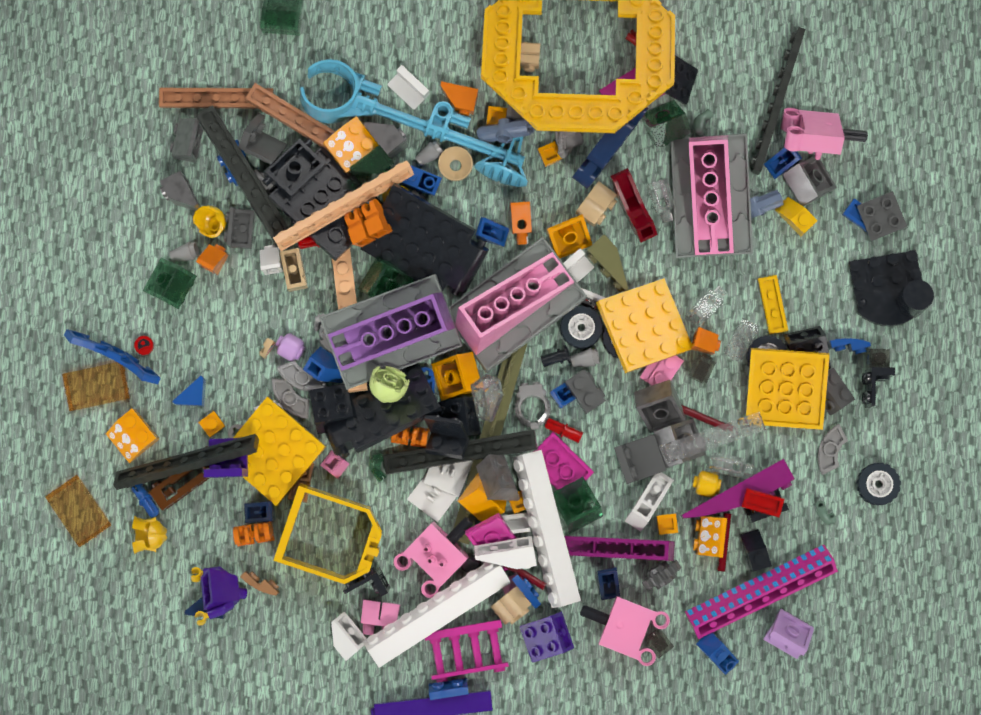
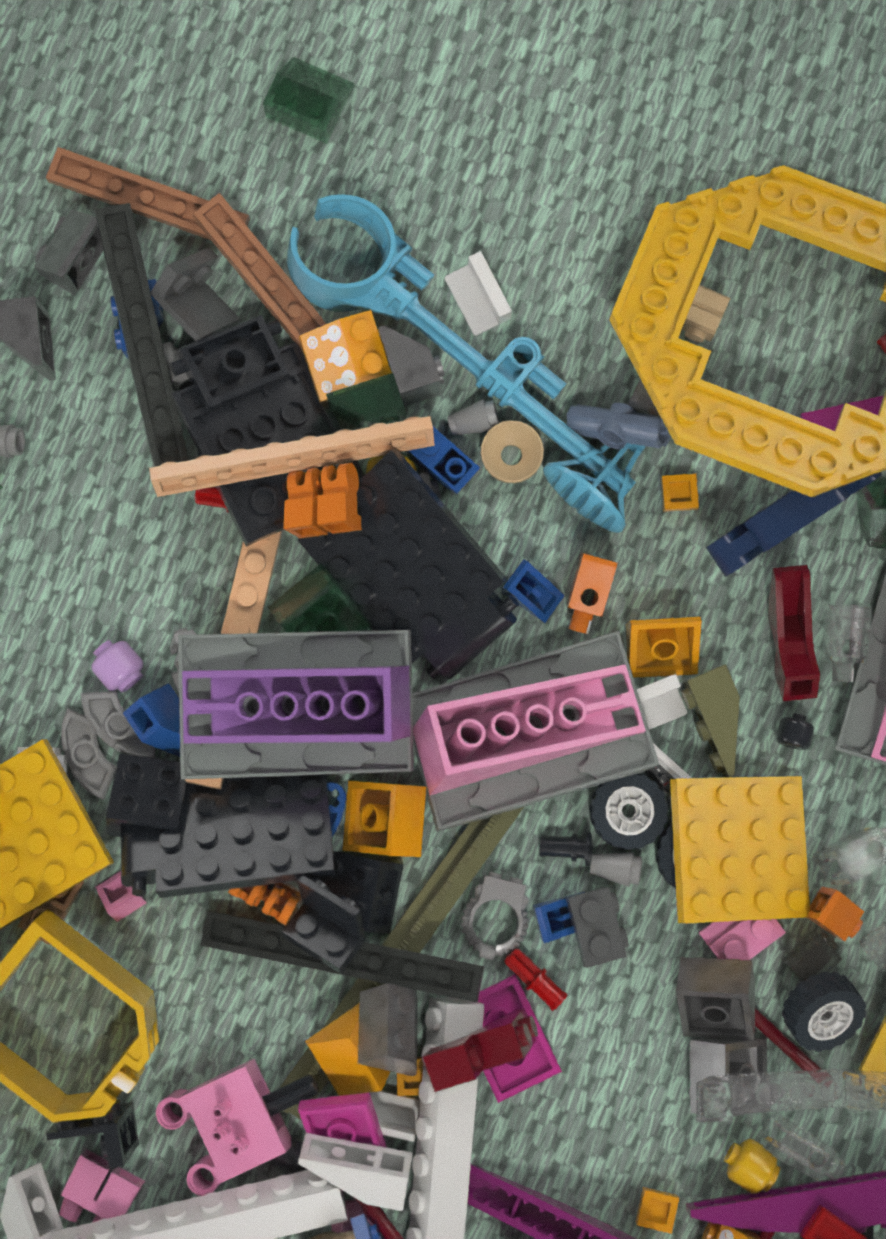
camera: 15 degrees right, 0 degrees up
(209, 221) = (58, 401): yellow hair -> none
(213, 258) = (39, 467): orange slope -> none
(239, 228) = (105, 432): dark grey bracket -> none
(268, 345) = (79, 651): tan tile -> none
(270, 260) = (137, 506): white slope -> none
(293, 269) = (170, 535): tan brick -> none
(375, 464) = (188, 924): clear green arm -> none
(388, 384) = (257, 796): yellowish green cylinder -> none
(431, 500) = (271, 1010): white piece -> none
(448, 477) = (306, 990): white piece -> none
(460, 97) = (561, 342): orange slope -> none
(487, 396) = (423, 875): clear slope -> none
(495, 114) = (609, 392): light orange plate -> none
(547, 471) = (486, 1048): none -> dark red arch
(567, 141) = (718, 480): light grey piece -> none
(577, 505) = (511, 1121): clear green slope -> none
(596, 204) = (729, 607): tan brick -> none
(640, 459) = (651, 1079): dark grey bracket -> none
(649, 501) = (639, 1159): white slope -> none
(653, 256) = (795, 732): none -> black piece
(716, 392) = (824, 1011): none -> black wheel

